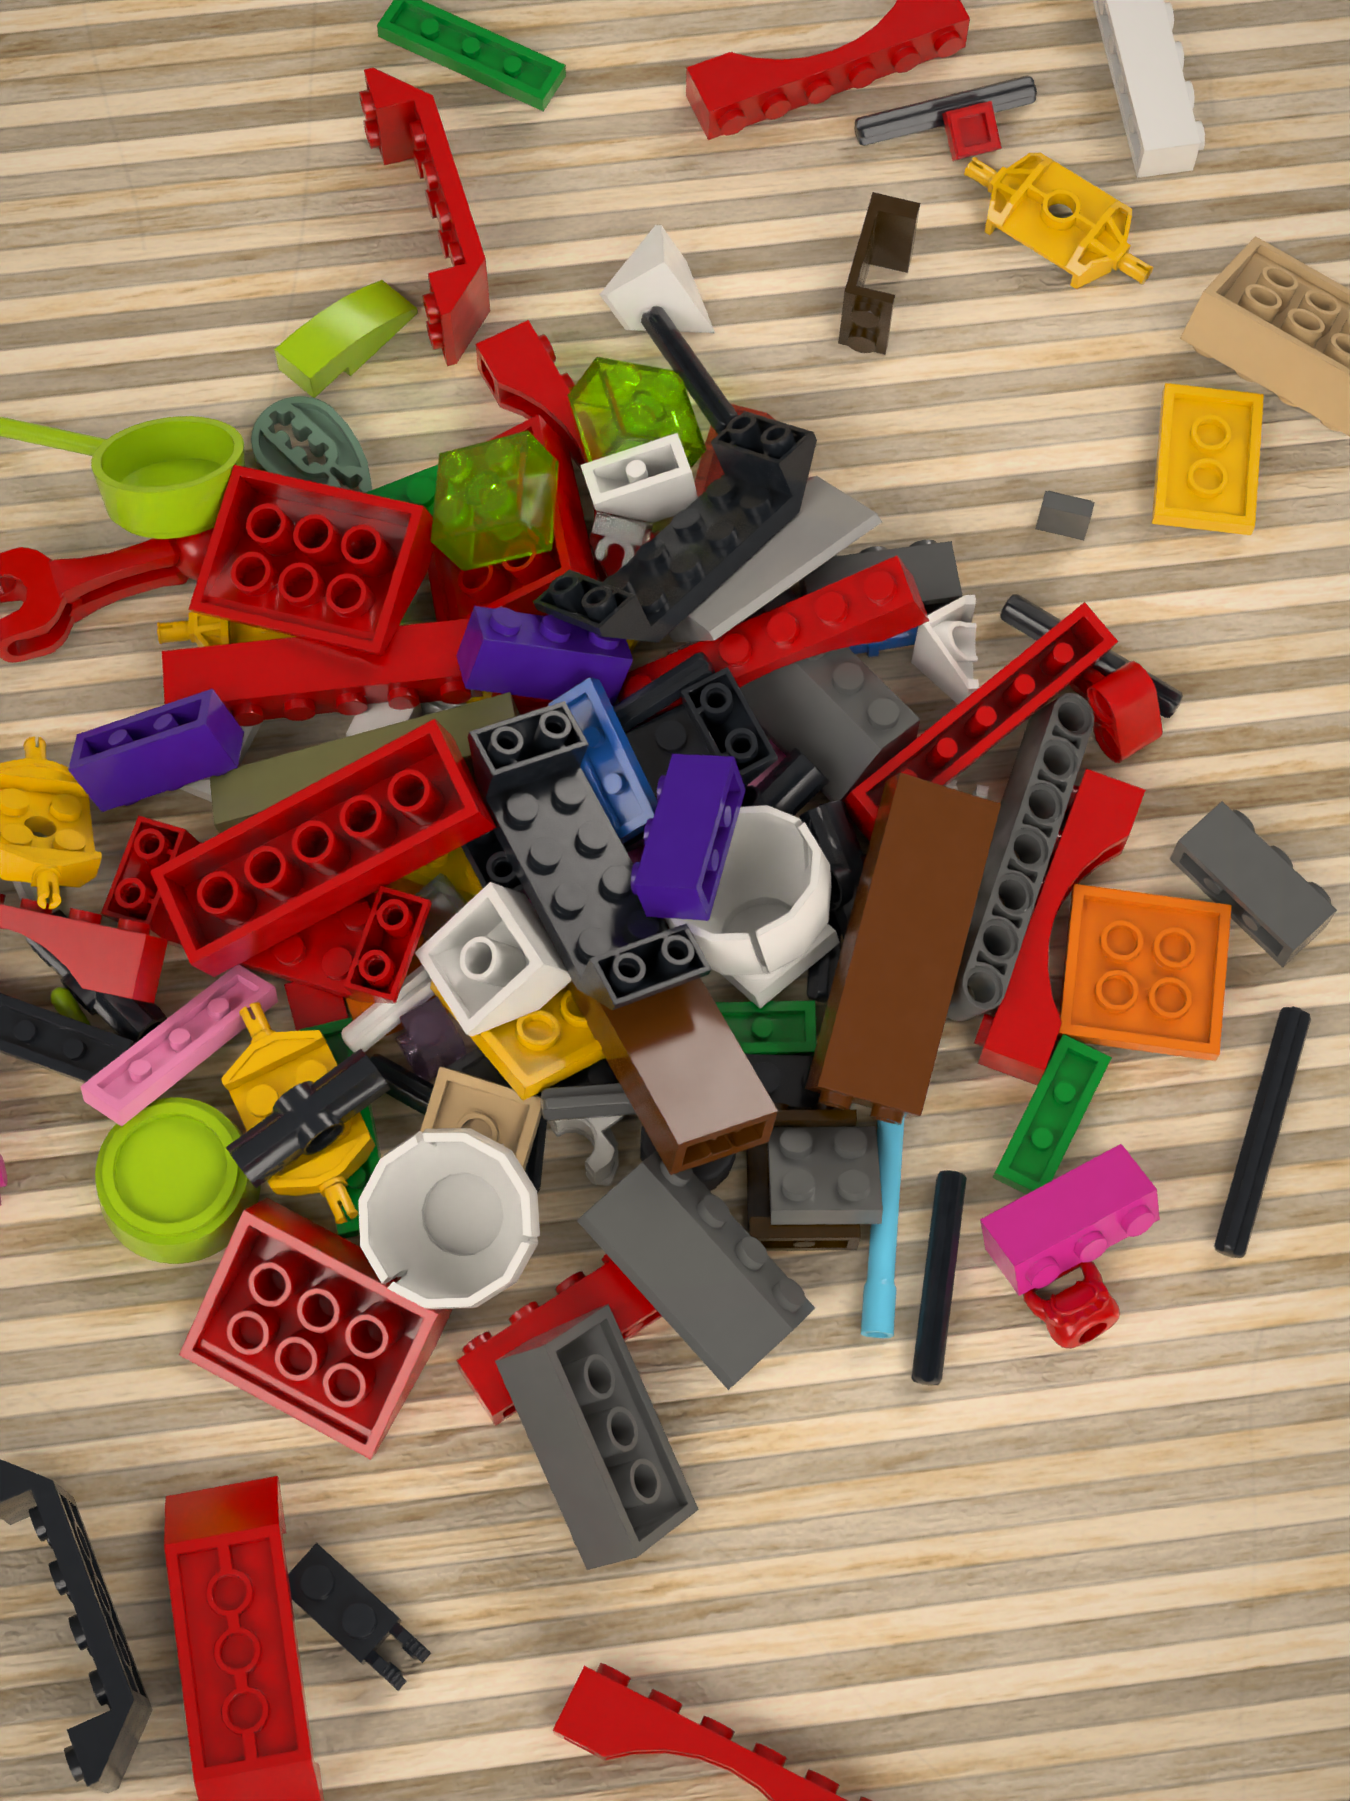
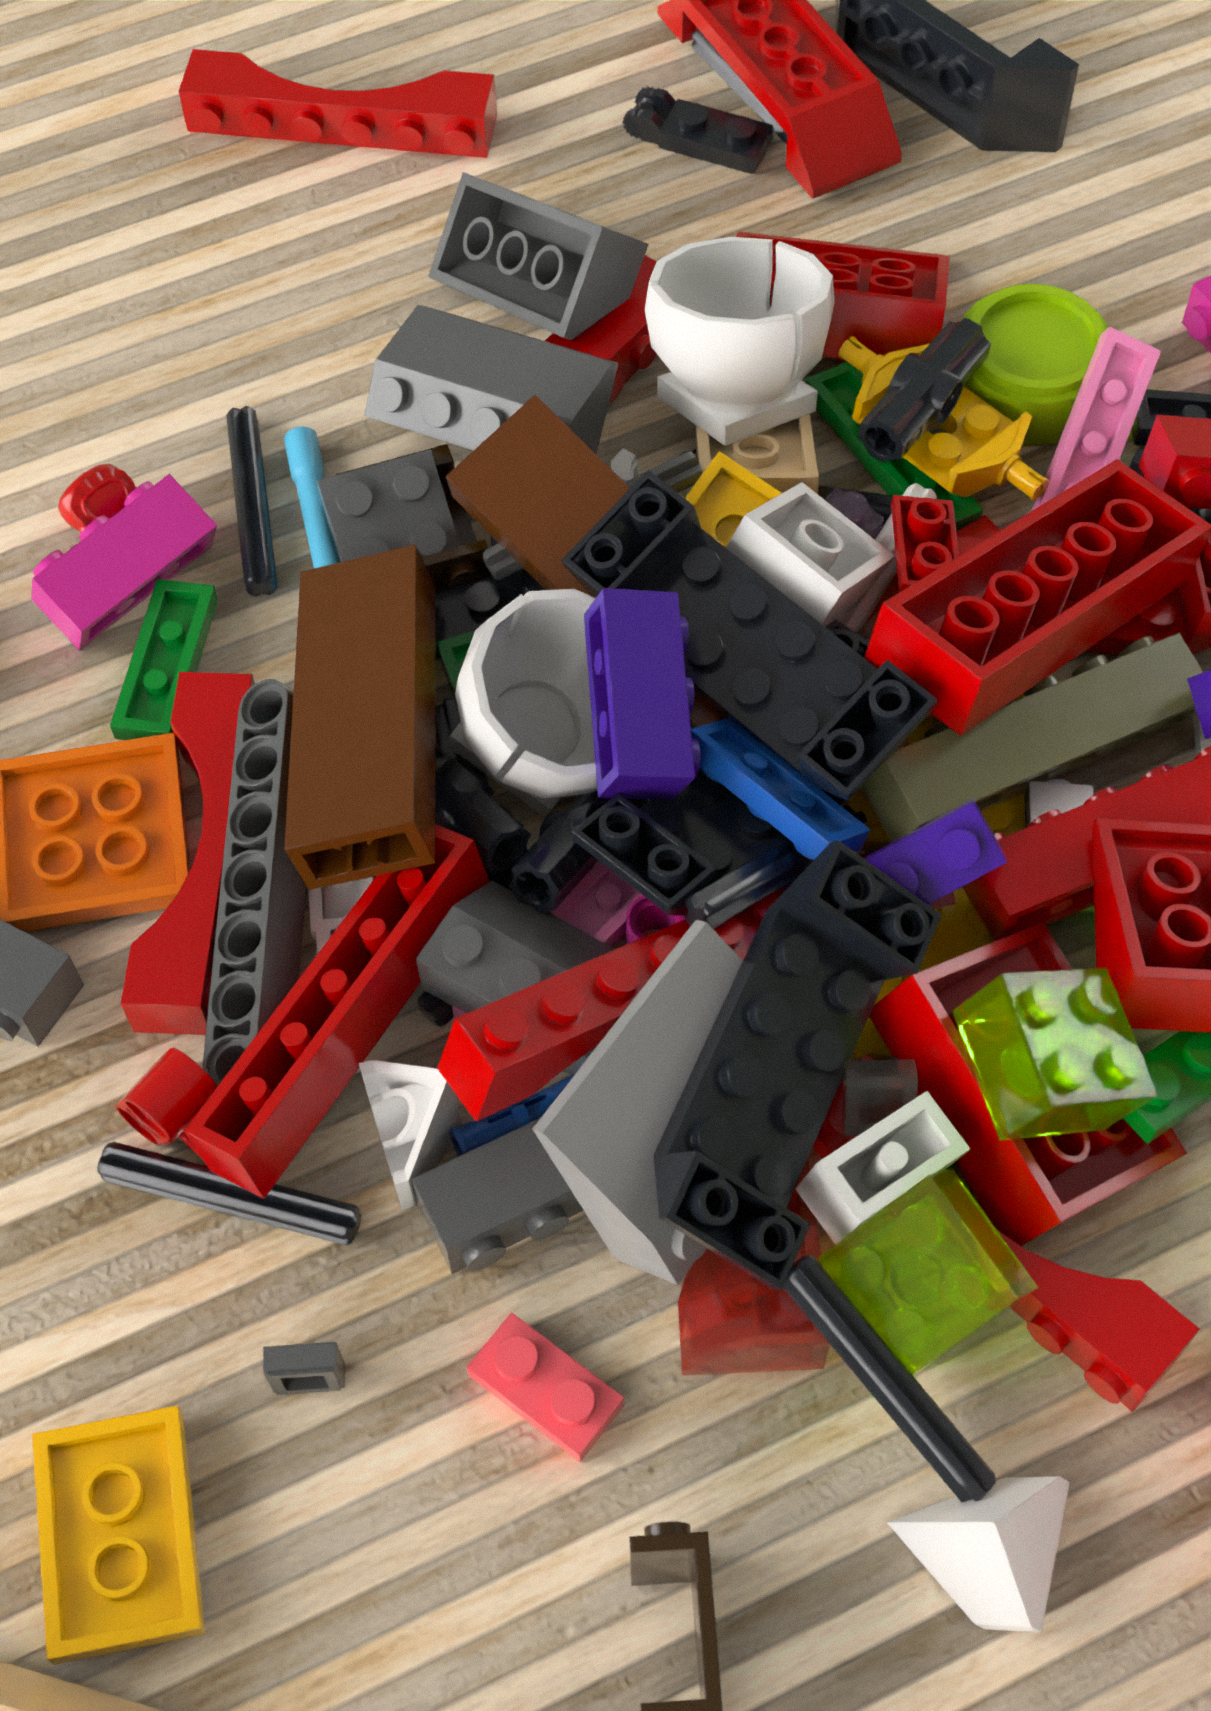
camera: 165 degrees right, 10 degrees down
(906, 467) = (545, 1386): none -> coral plate

